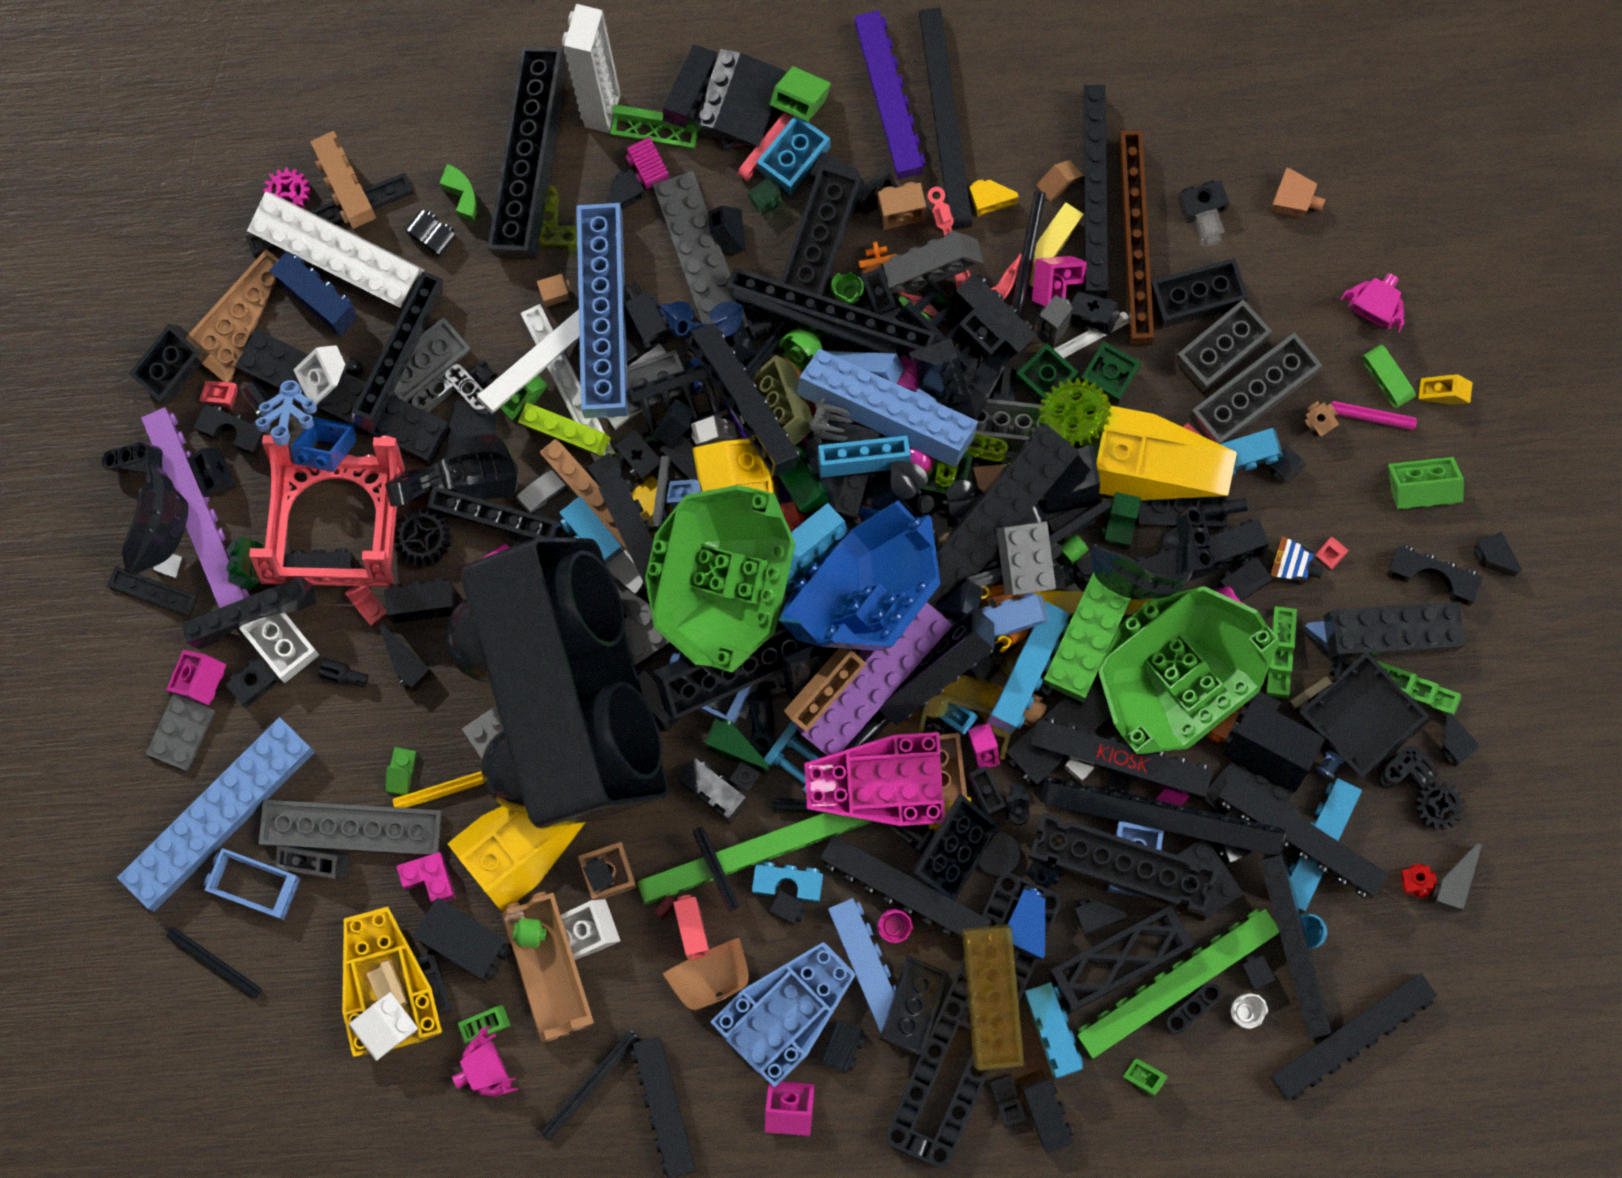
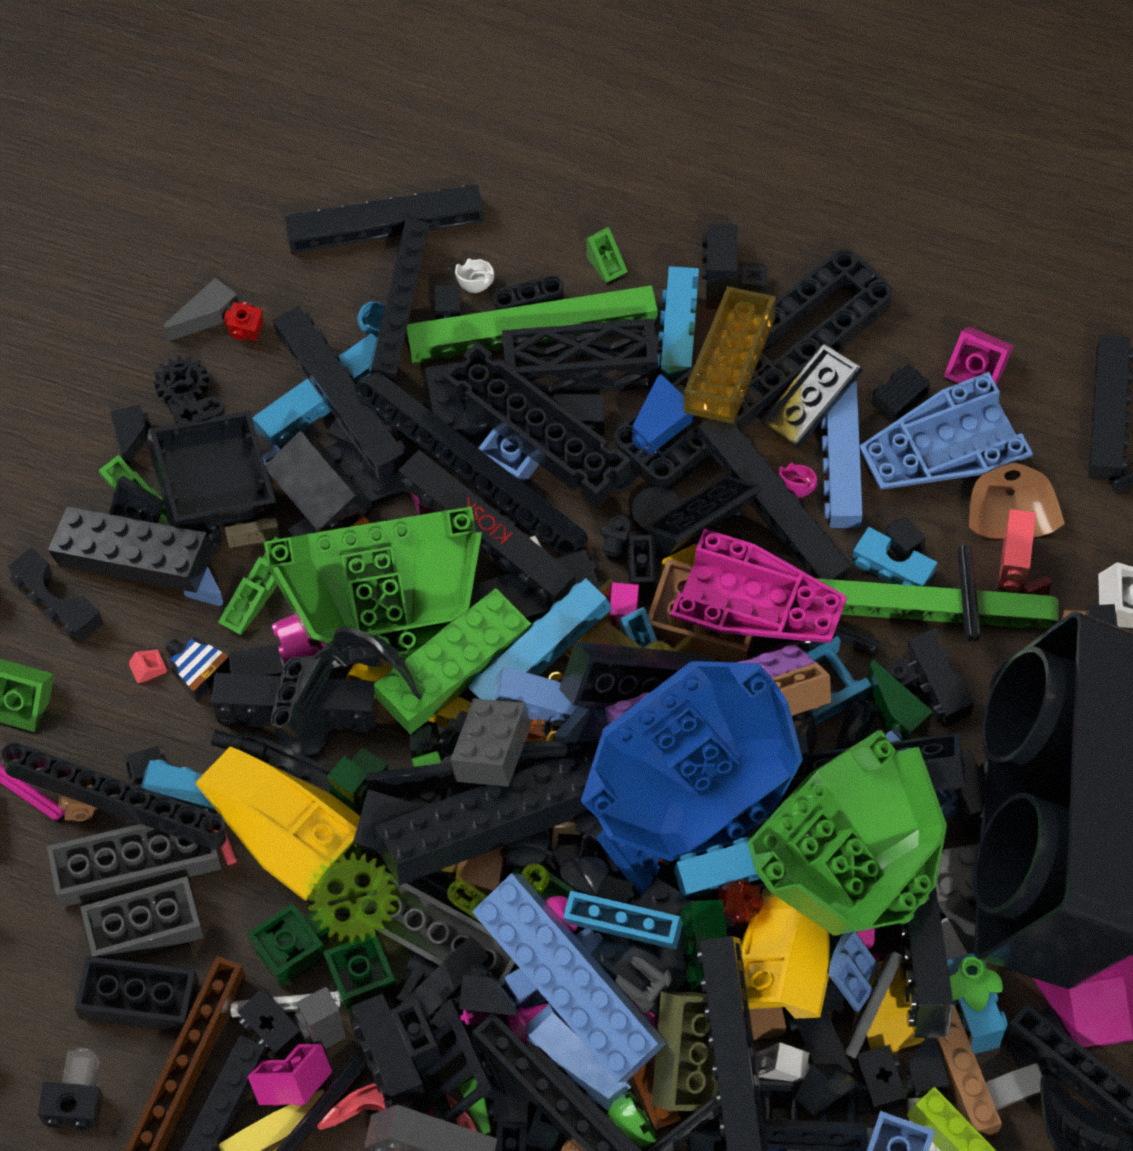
camera: 160 degrees left, 15 degrees down
(595, 529) = (976, 987): none -> bright green plate
(1302, 412) = (121, 805): none -> black beam
(1411, 668) = (135, 502): none -> black tile

